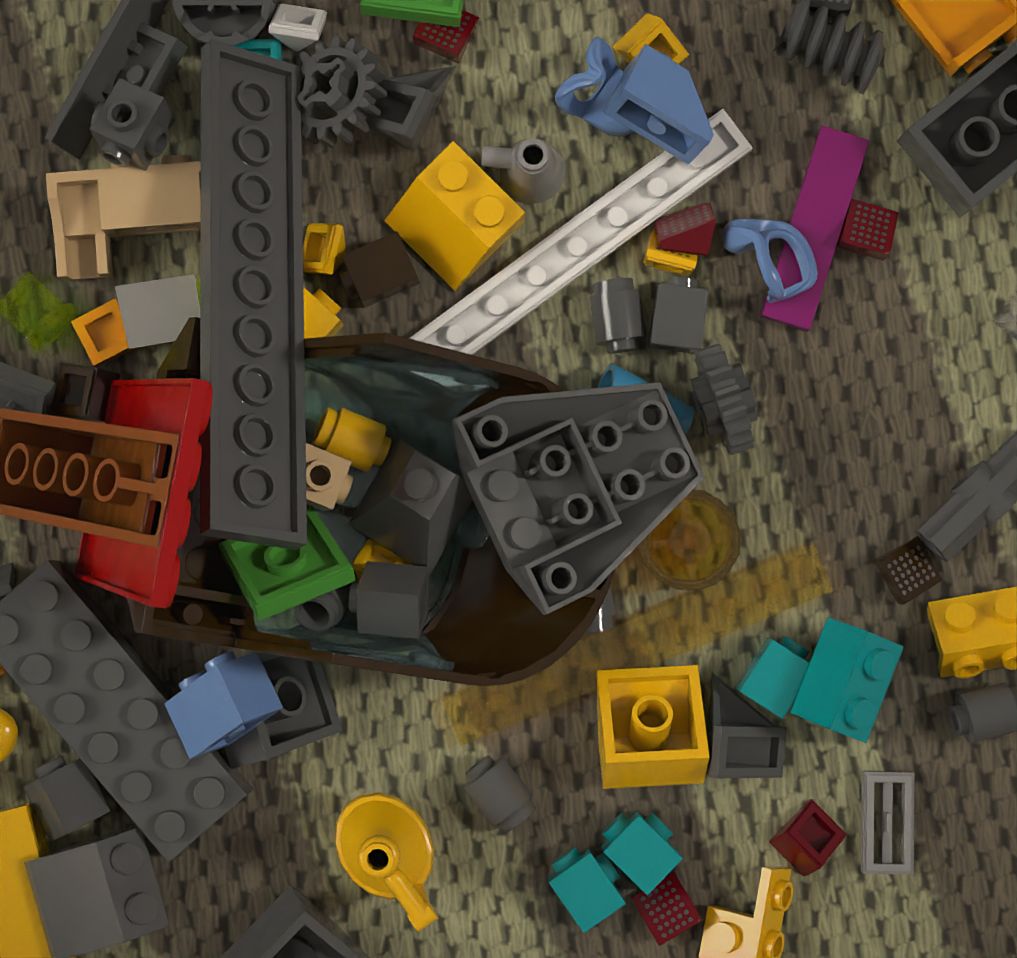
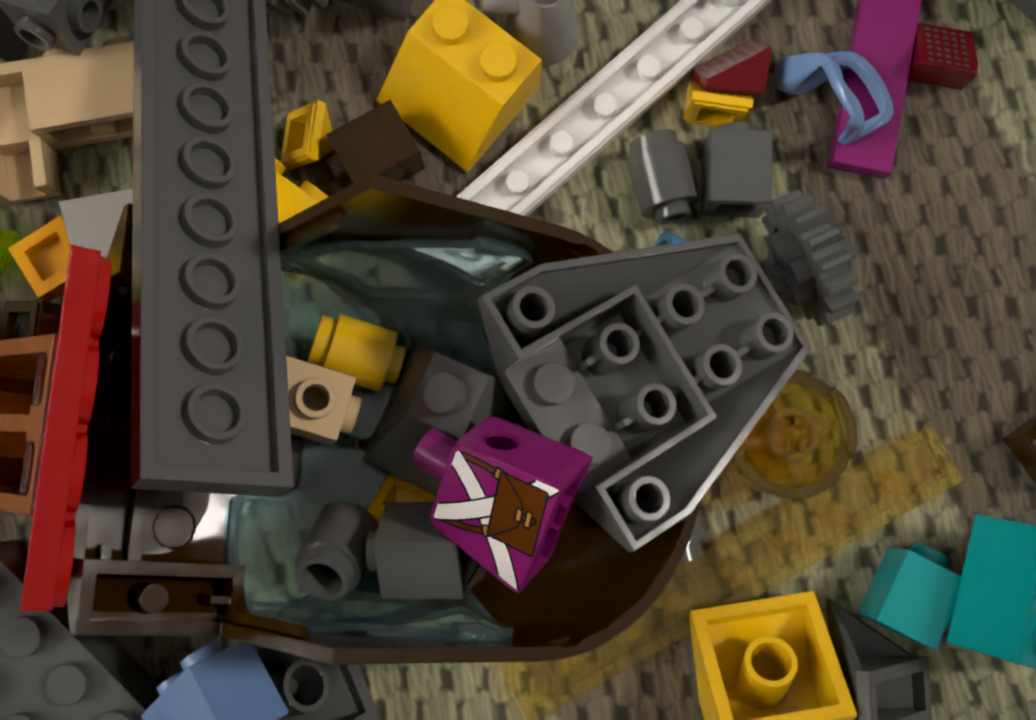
camera: 10 degrees left, 5 degrees down
(283, 577) = (279, 535): bright green plate -> none
(456, 564) = (503, 494): none -> magenta torso

